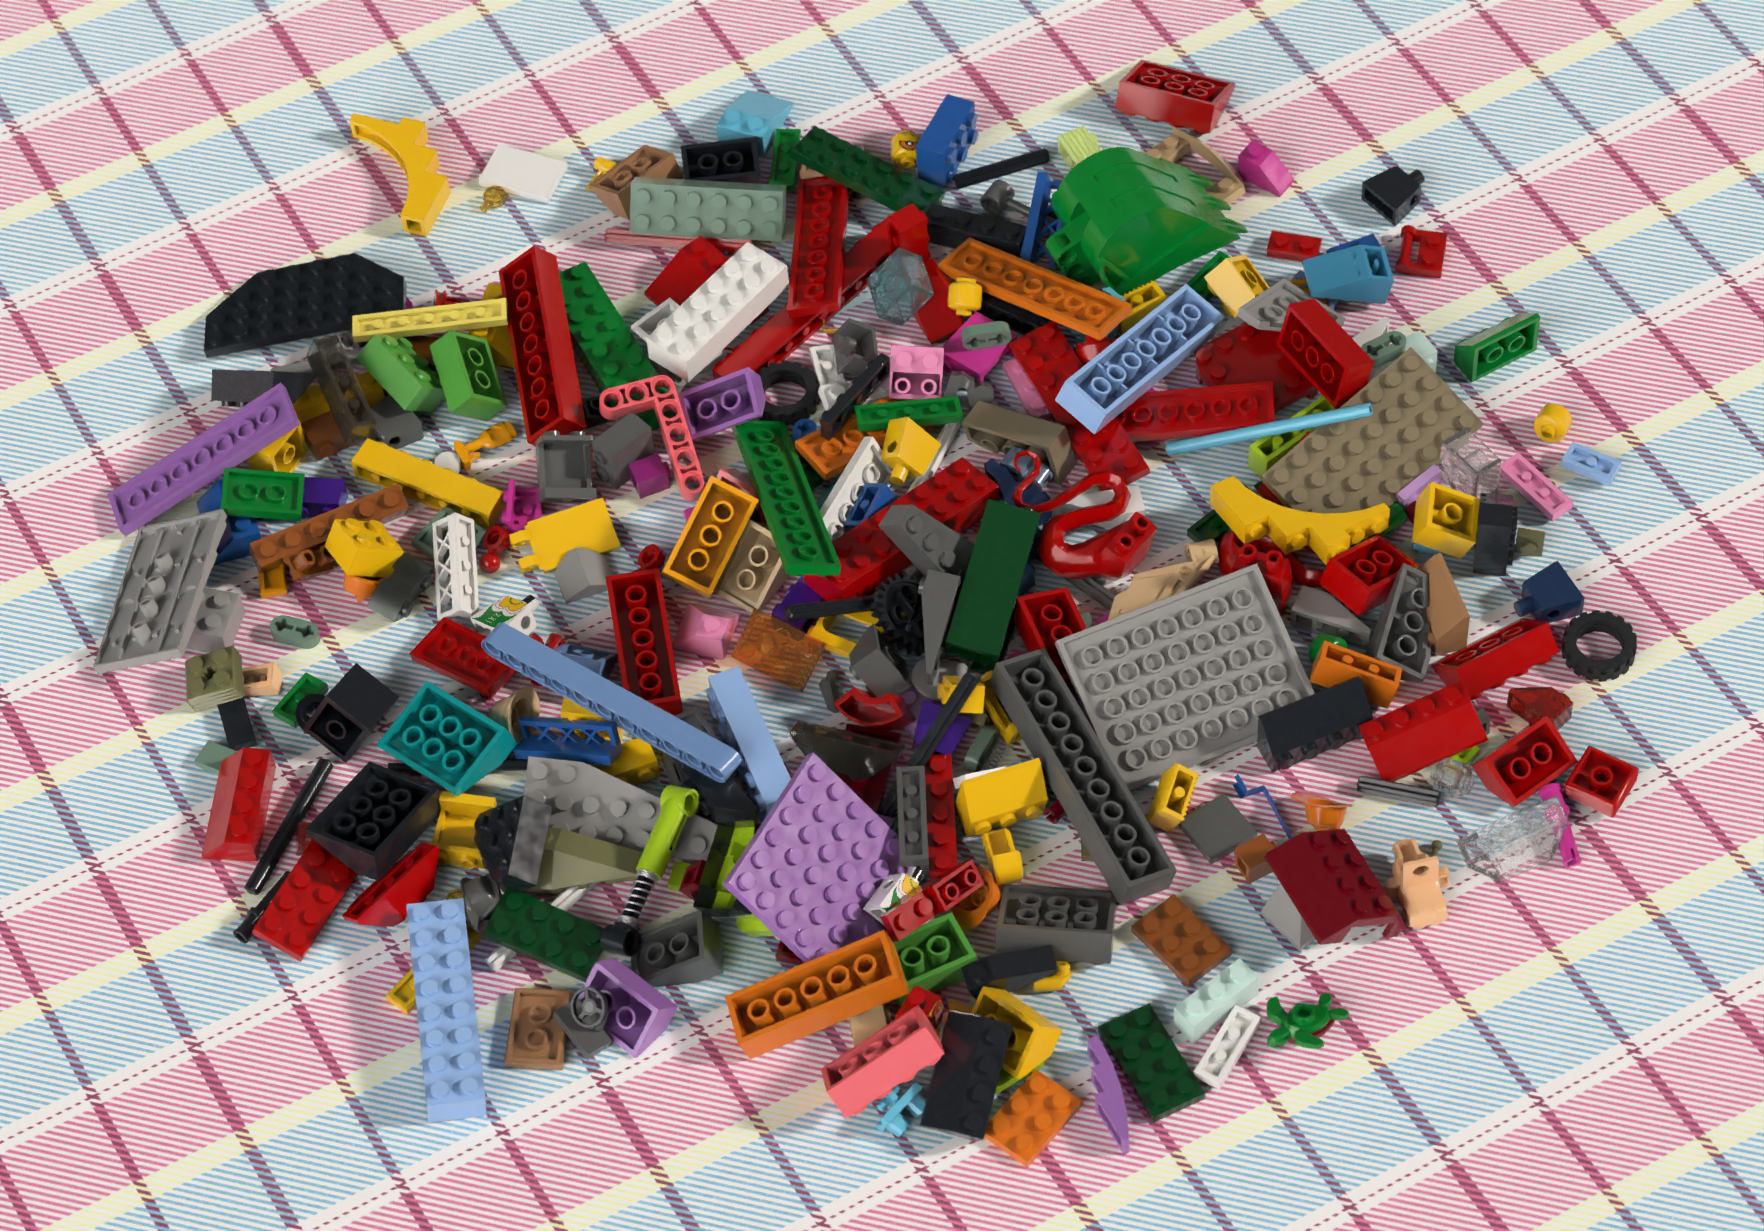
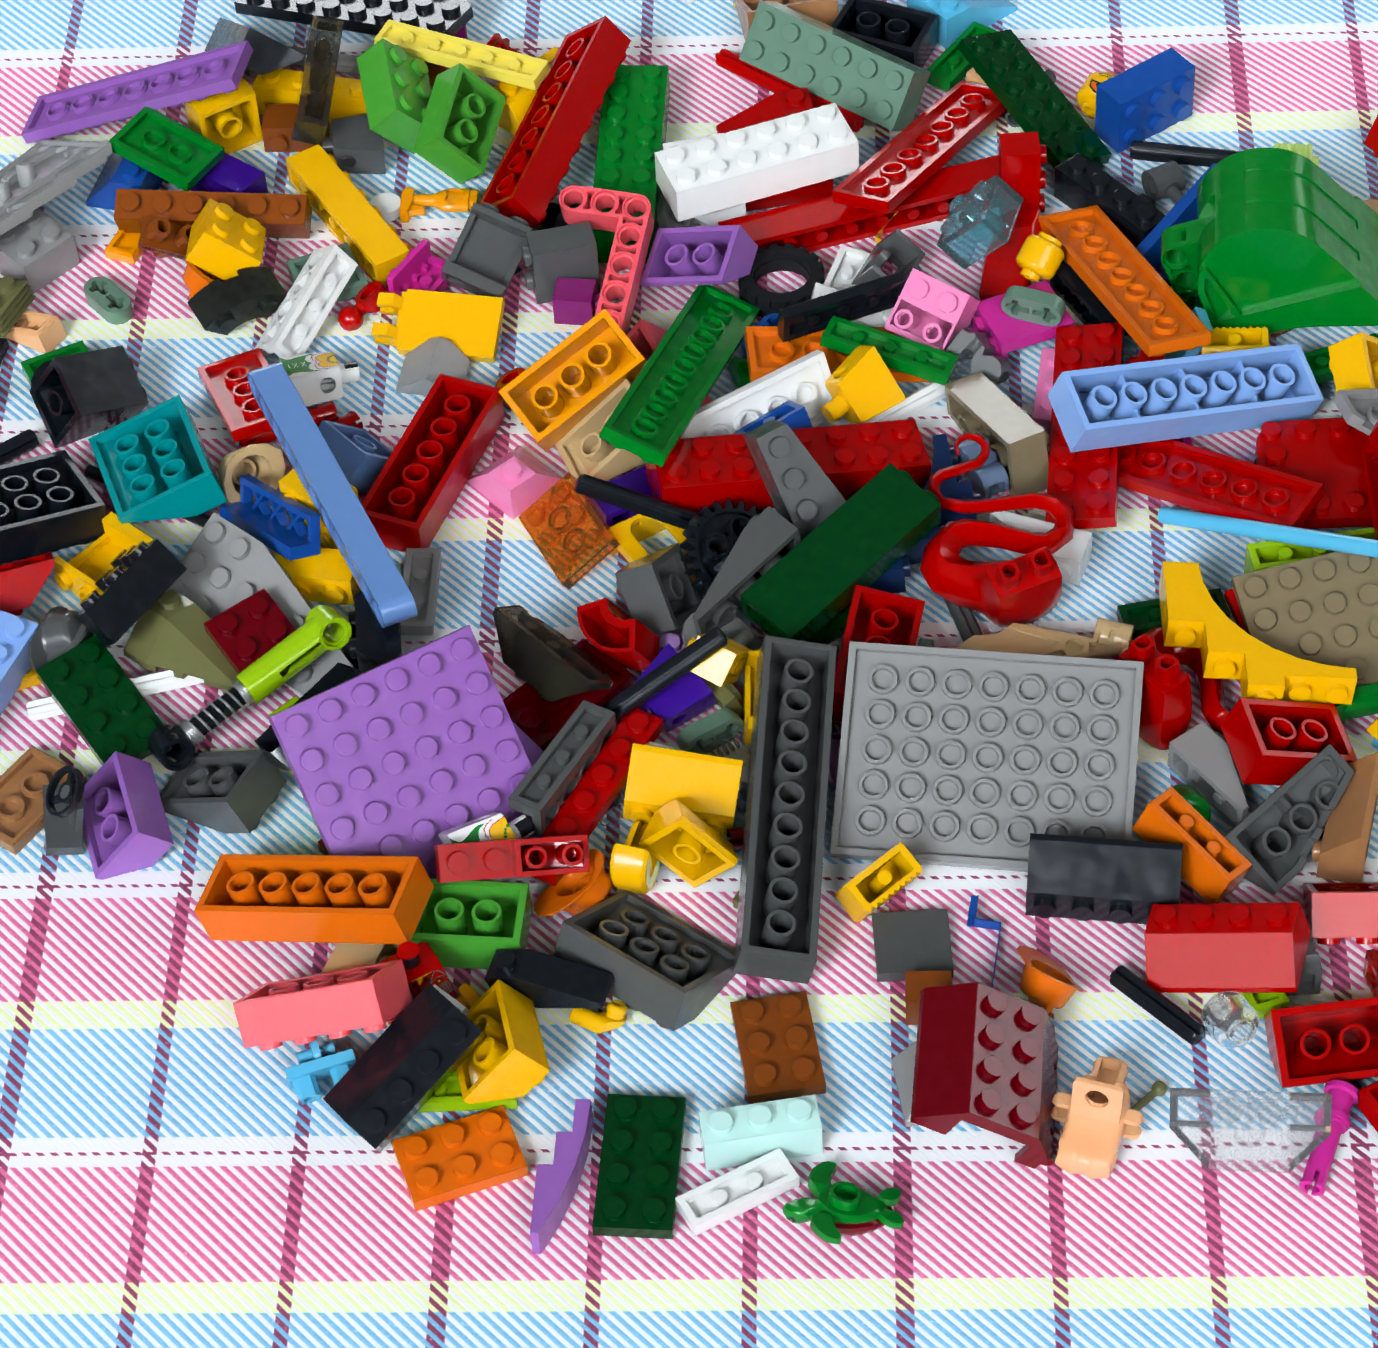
camera: 30 degrees right, 5 degrees down
(621, 830) = (249, 629): none -> dark red plate
(748, 735) = (465, 581): light blue brick -> none
(830, 690) = (600, 591): dark grey bar -> none
(1033, 833) = (687, 844): none -> yellow slope

